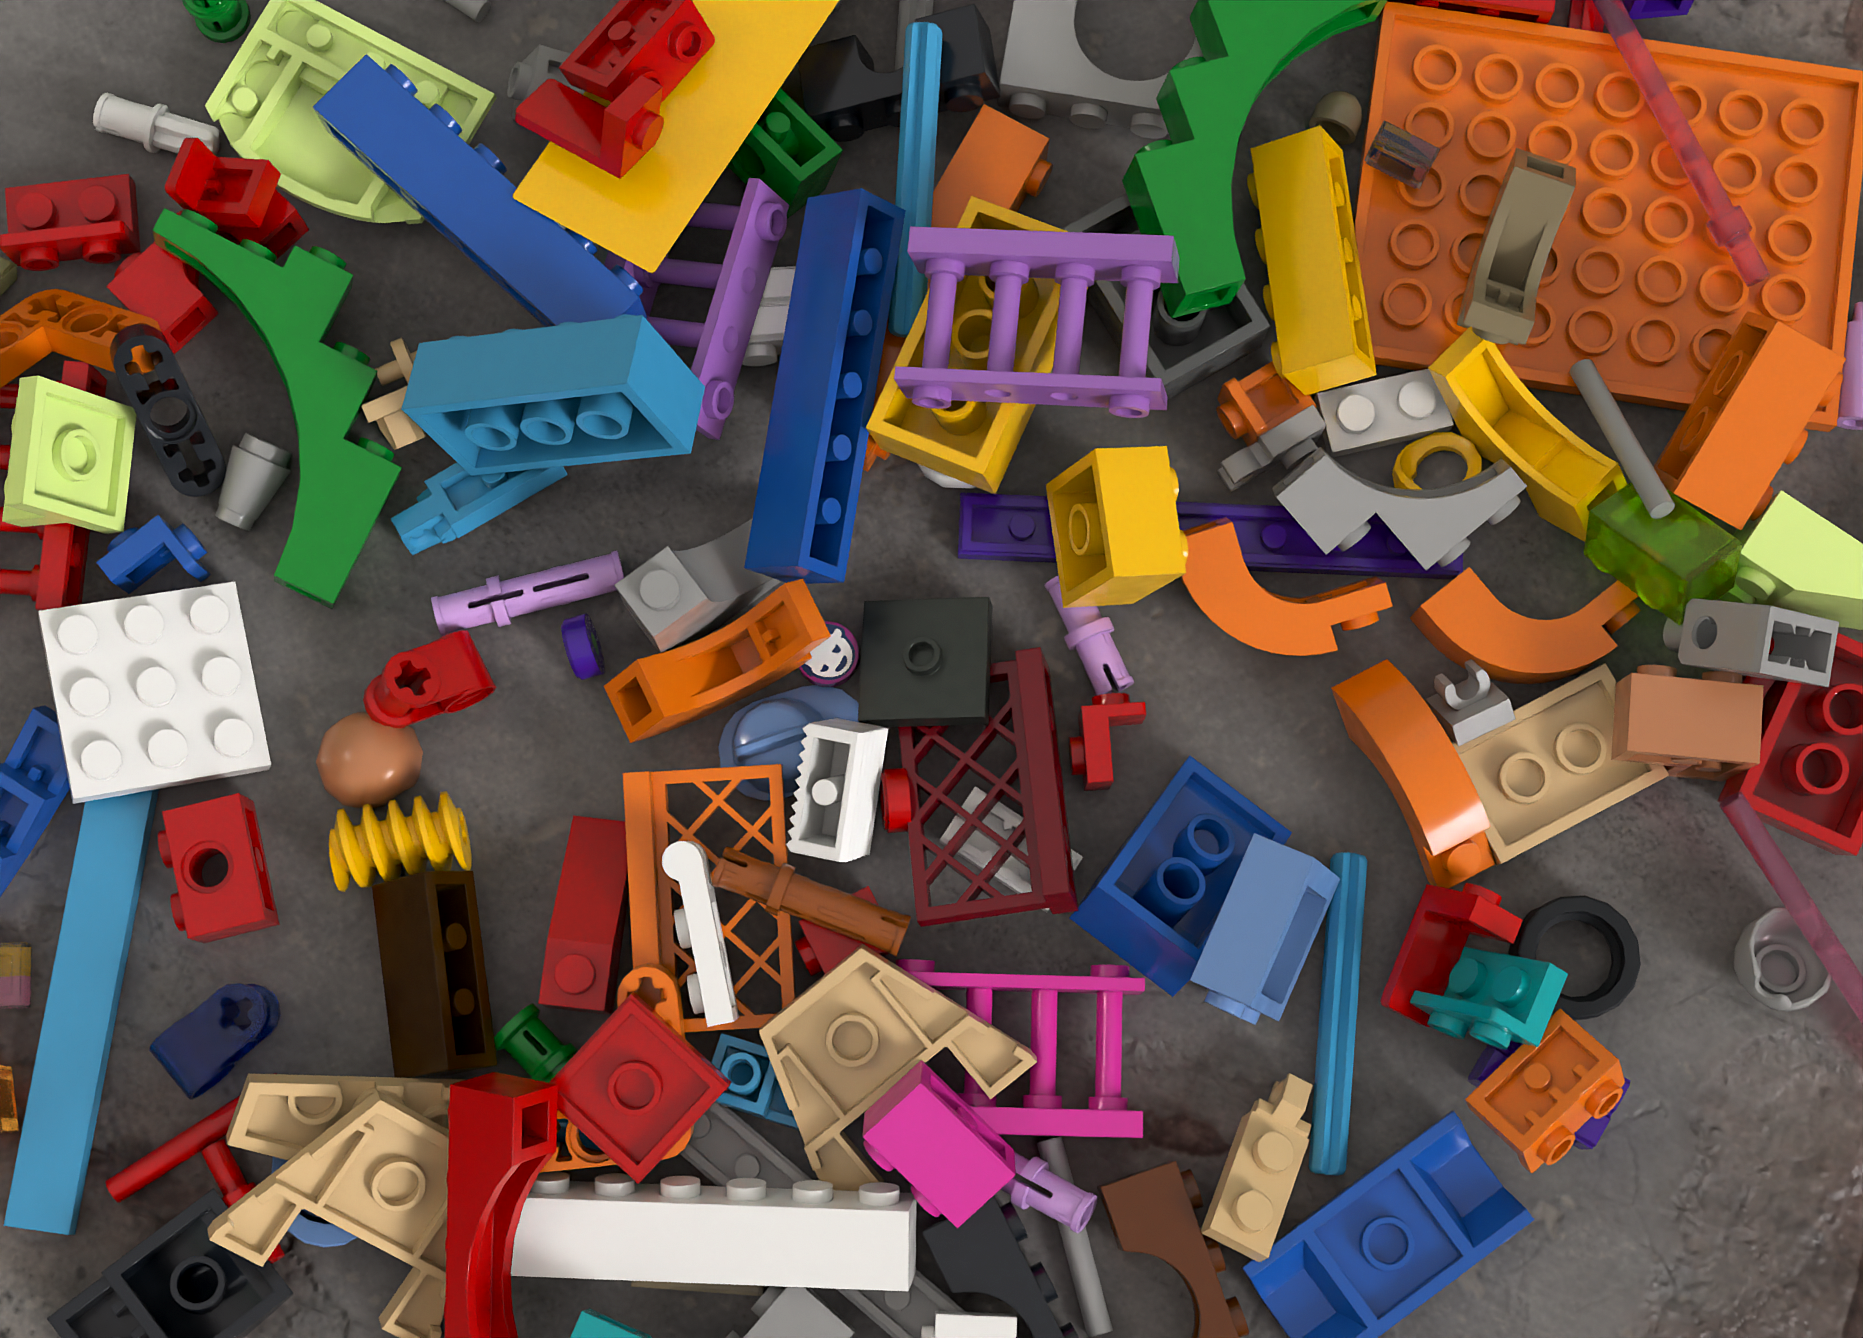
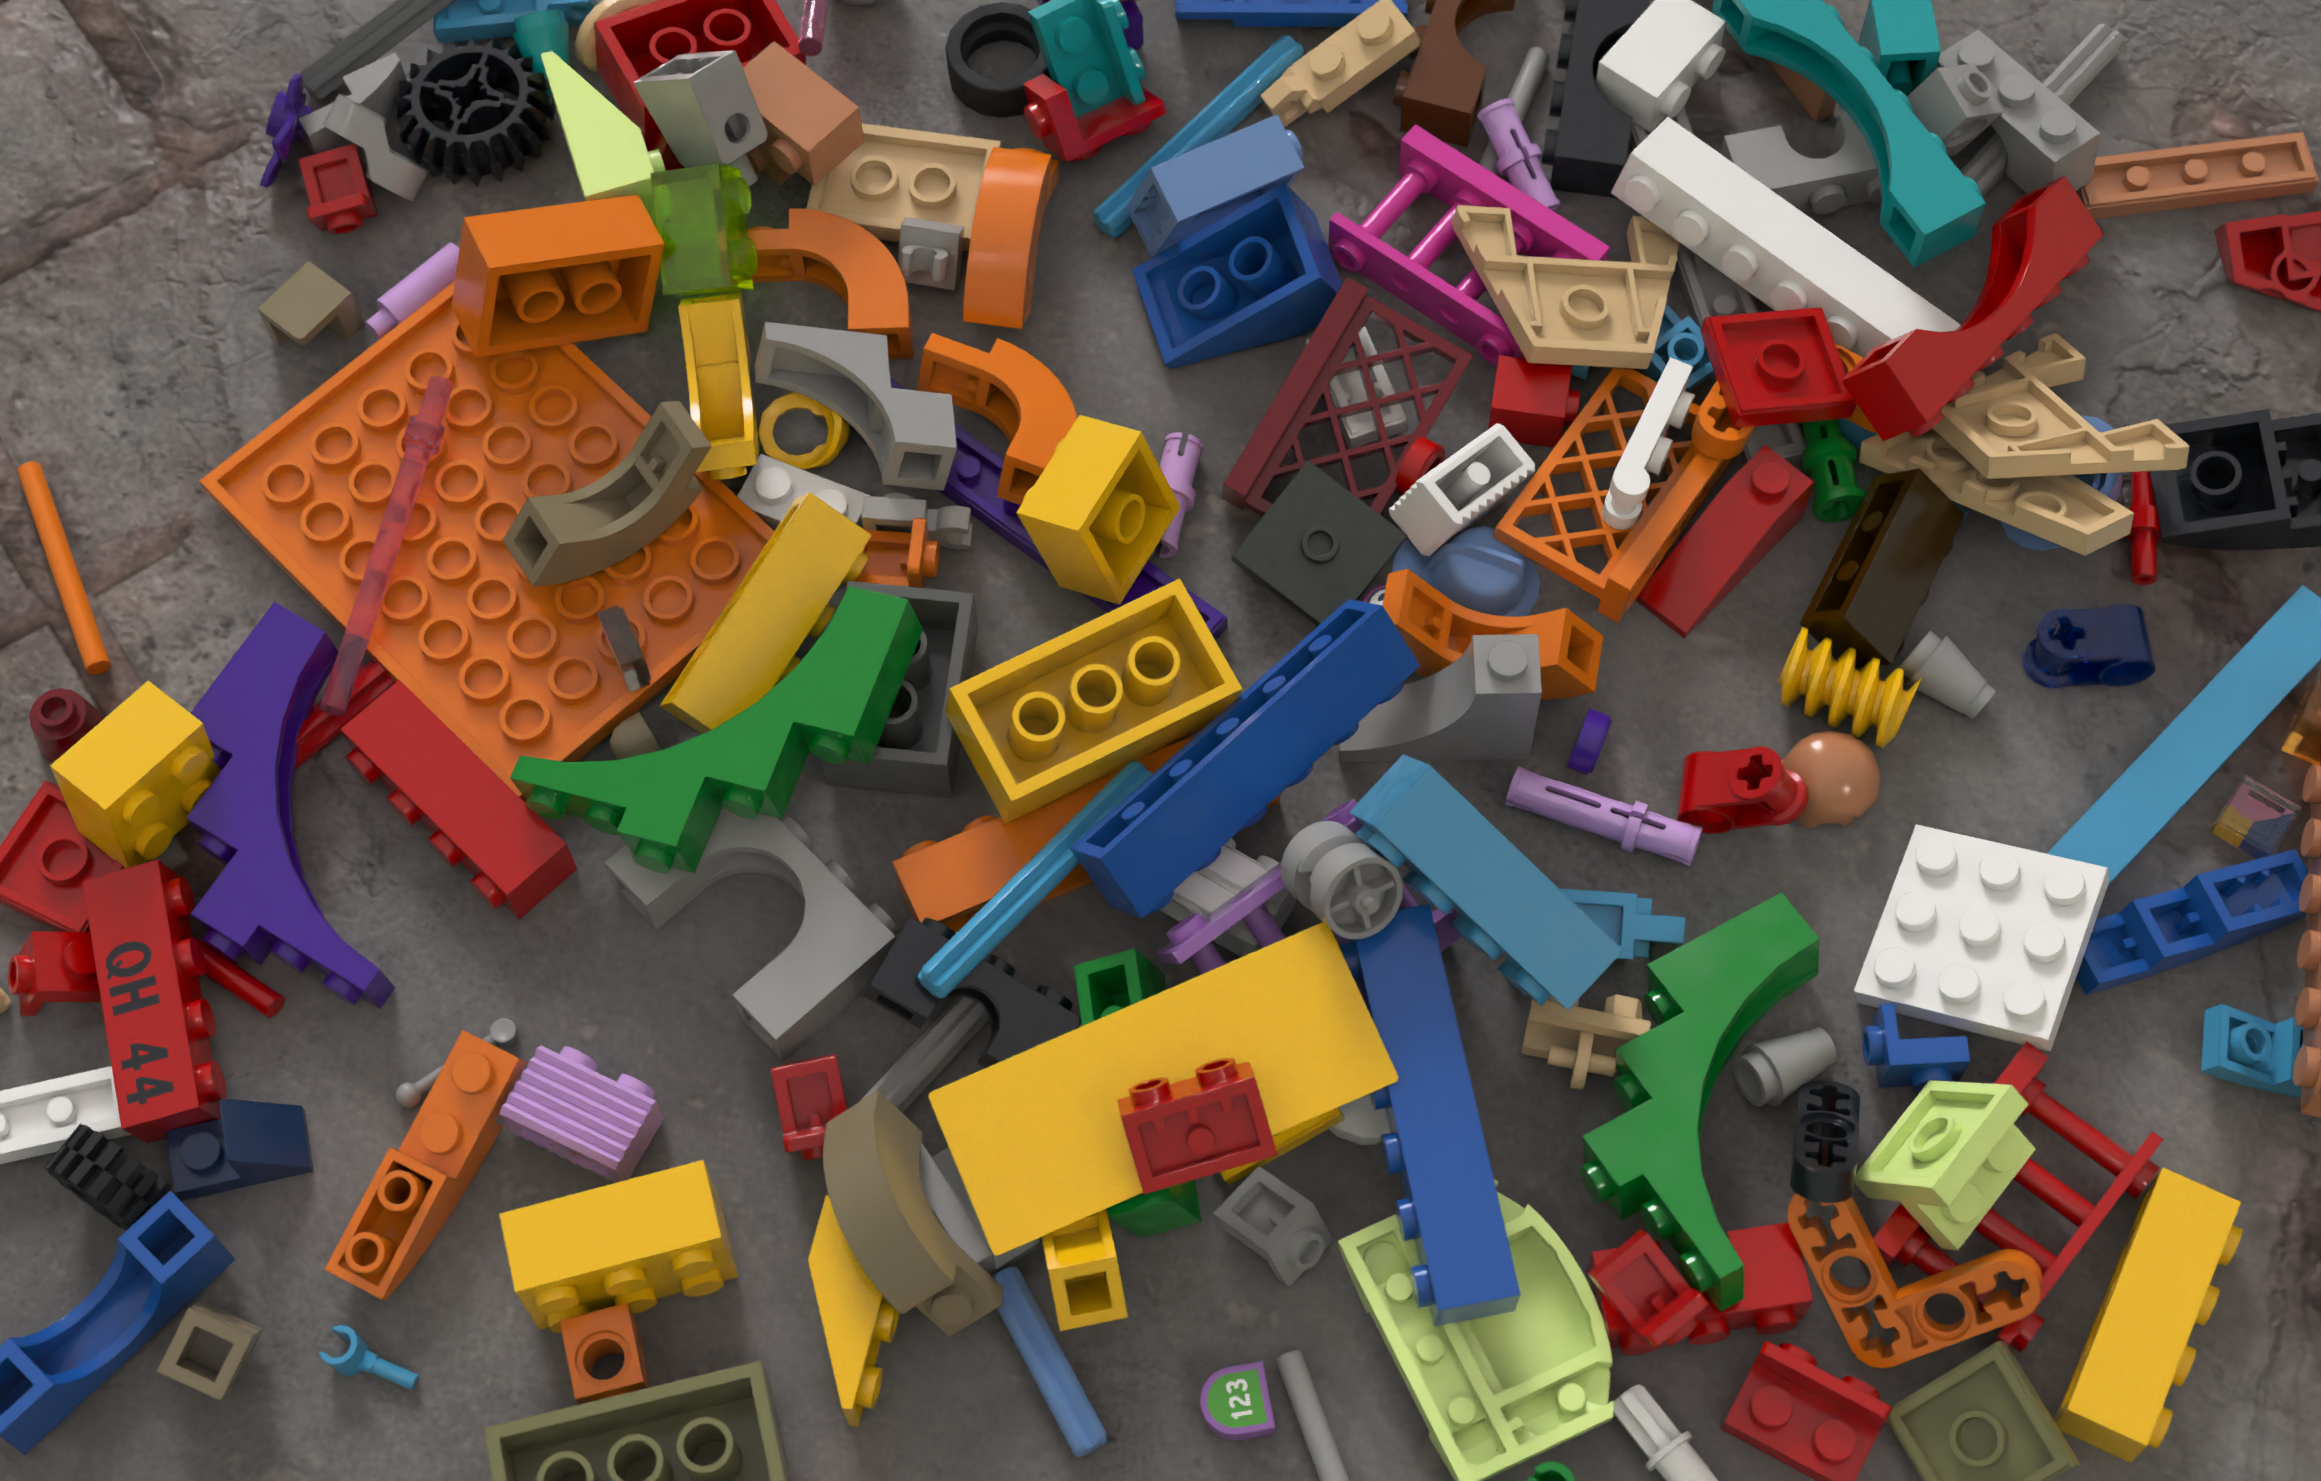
camera: 140 degrees left, 15 degrees down
(172, 1153) = (2153, 595): red bar -> none
(245, 896) = (2020, 733): red brick -> none
(327, 922) = (1947, 675): none -> light grey cone
(602, 135) = (1287, 1070): red bracket -> none
(676, 305) = (1341, 880): none -> light grey wheel
(799, 896) = (1560, 431): dark orange pin -> none
(937, 1145) = (1573, 195): dark pink brick -> none
(1010, 261) = (1032, 699): medium lavender fence -> none
(1091, 750) = (1234, 409): red bracket -> none
(1622, 439) = (657, 326): light grey bar -> none

